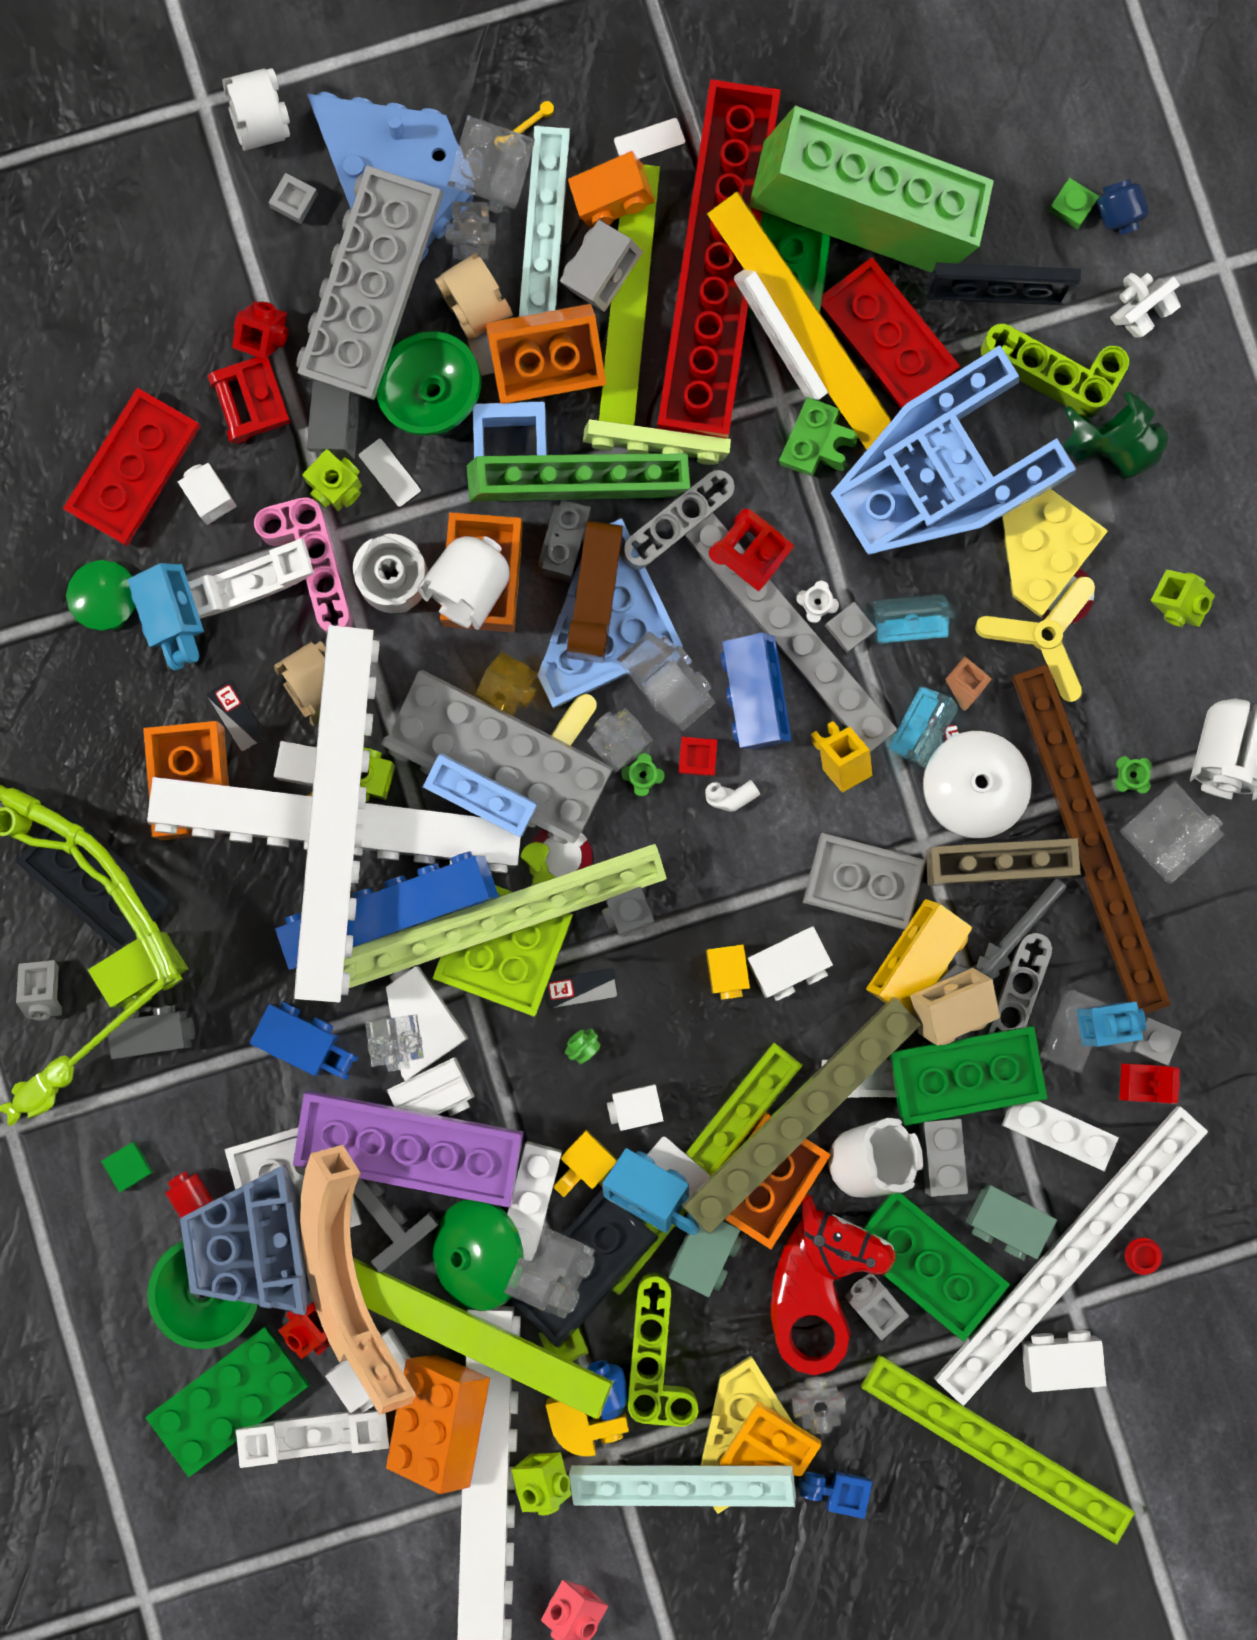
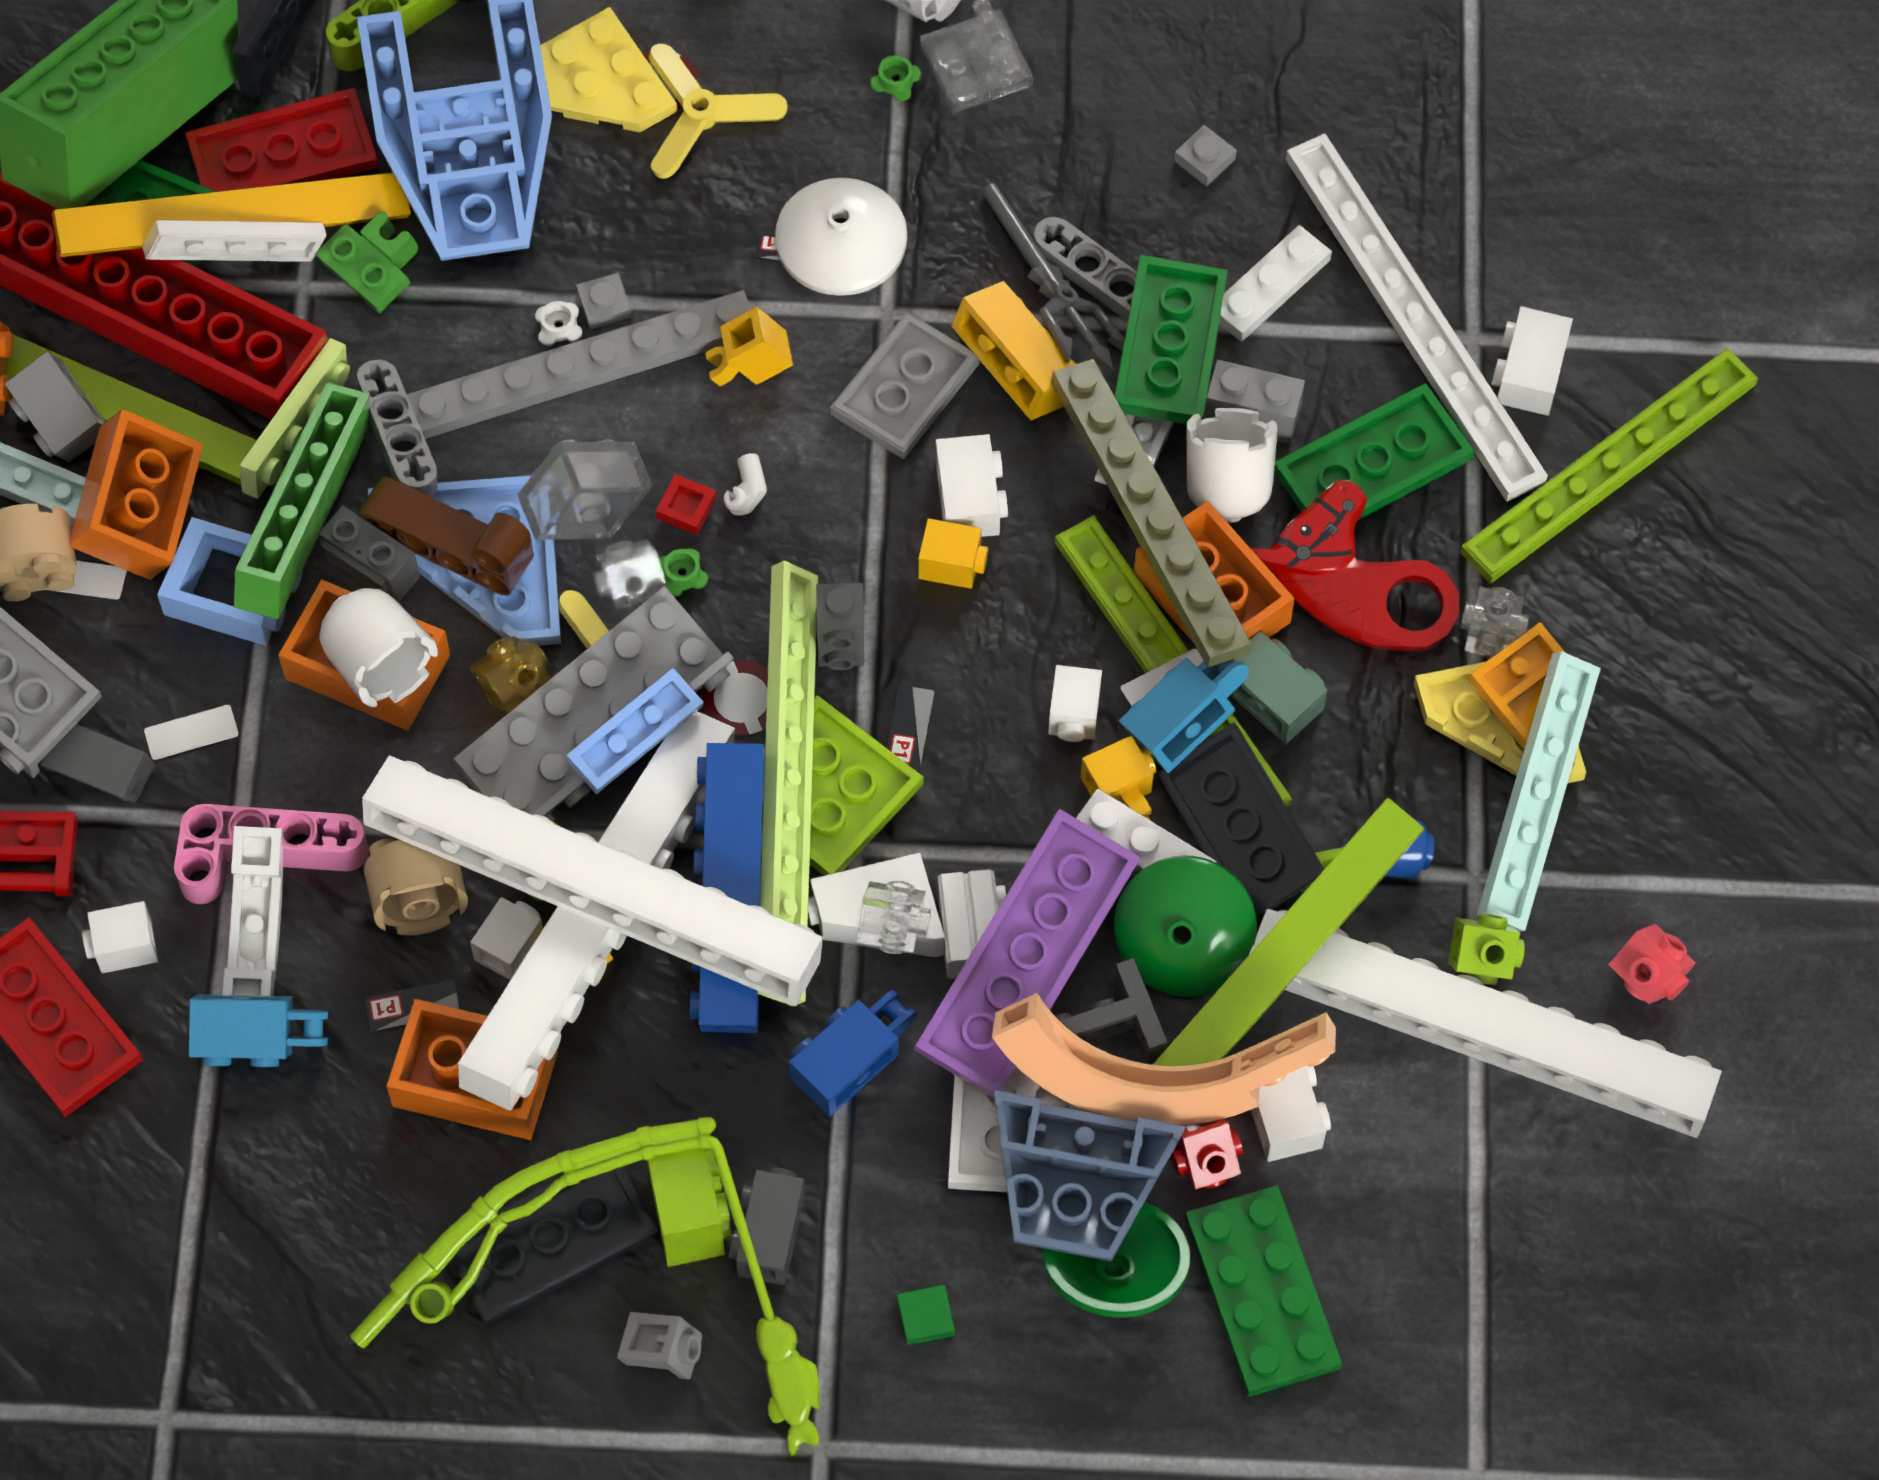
camera: 70 degrees left, 20 degrees down
(100, 595) = (191, 1108): green dish -> none
(187, 1193) = (991, 1248): red brick -> none
(311, 1436) = (1342, 1193): white slope -> none
(324, 474) = (175, 783): lime brick -> none
(383, 555) = (320, 755): white brick -> none
(419, 367) = (98, 613): green dish -> none
(441, 1429) = (1384, 1030): orange brick -> none
(535, 857) = (742, 719): lime piece -> none
(553, 1274) = (1241, 841): clear brick -> none
(577, 1432) = (1430, 895): yellow brick -> none
(582, 1045) = (979, 738): bright green plate -> none
(655, 1348) = (1373, 773): lime beam -> none
(756, 691) = (636, 414): brick -> none
(761, 556) = (479, 353): red plate -> none
(846, 1494) = (1608, 632): blue plate -> none
(876, 1305) = (1401, 527): light grey bracket -> none
(911, 618) = (621, 236): clear light blue slope -> none
(923, 726) = (750, 266): clear light blue slope -> none
(955, 1006) = (1087, 319): tan brick -> none
(967, 682) = (721, 204): nougat slope -> none
(1002, 862) = (941, 229): dark tan brick -> none
(1010, 1221) = (1354, 360): sand green brick -> none
(1064, 1042) = (1159, 207): clear brick -> none
(1096, 851) = (951, 141): reddish brown plate -> none
(1111, 1024) = (1165, 157): dark azure brick -> none
(1143, 1256) = (1442, 246): red plate -> none
(1149, 1083) = (1250, 171): red bracket -> none

